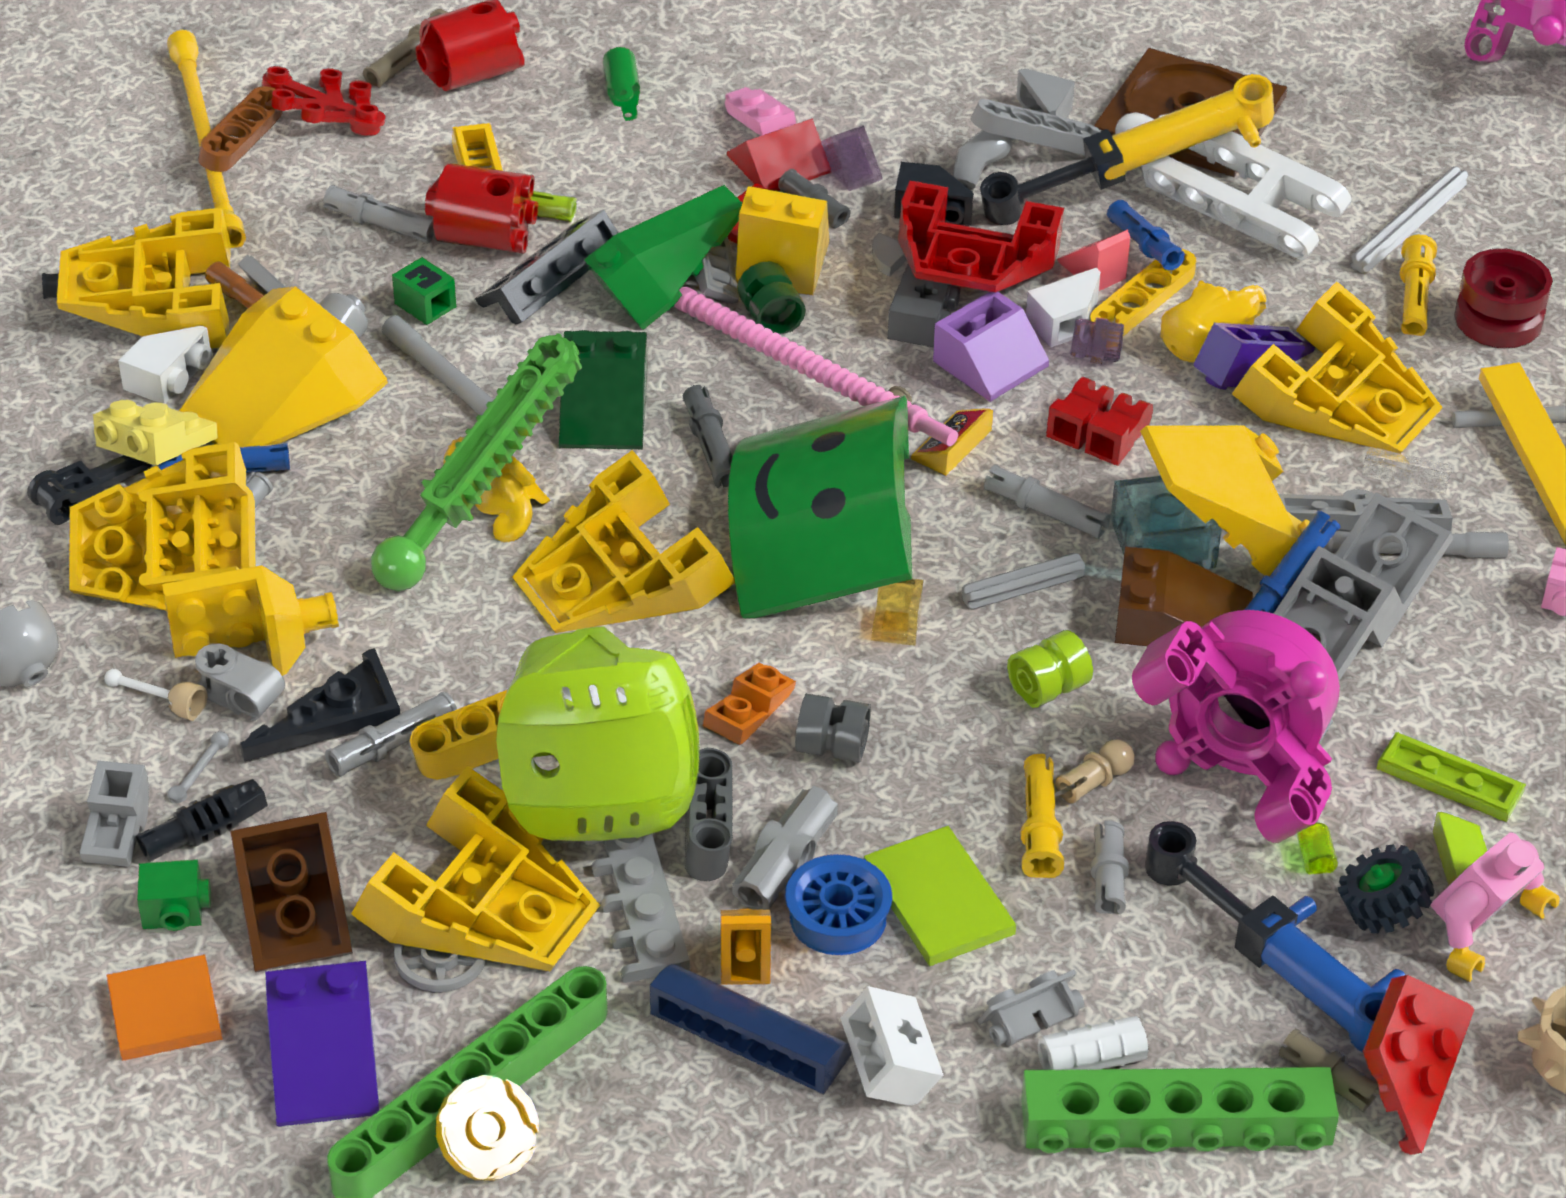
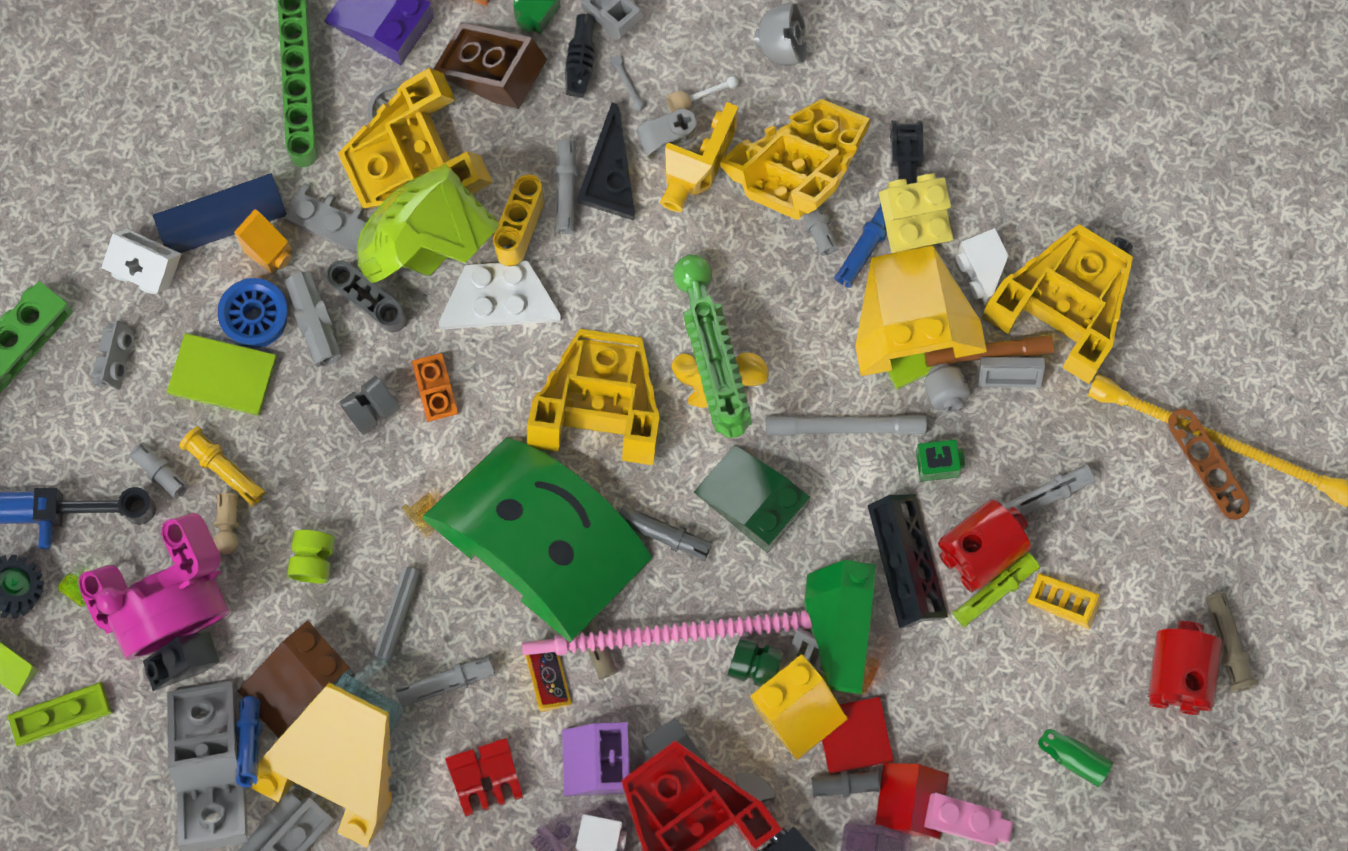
camera: 130 degrees right, 30 degrees up
(327, 106) = (1204, 544): red plant -> none
(486, 1128) = (259, 47): tile -> none
(1094, 1046) = (61, 360): white axle -> none

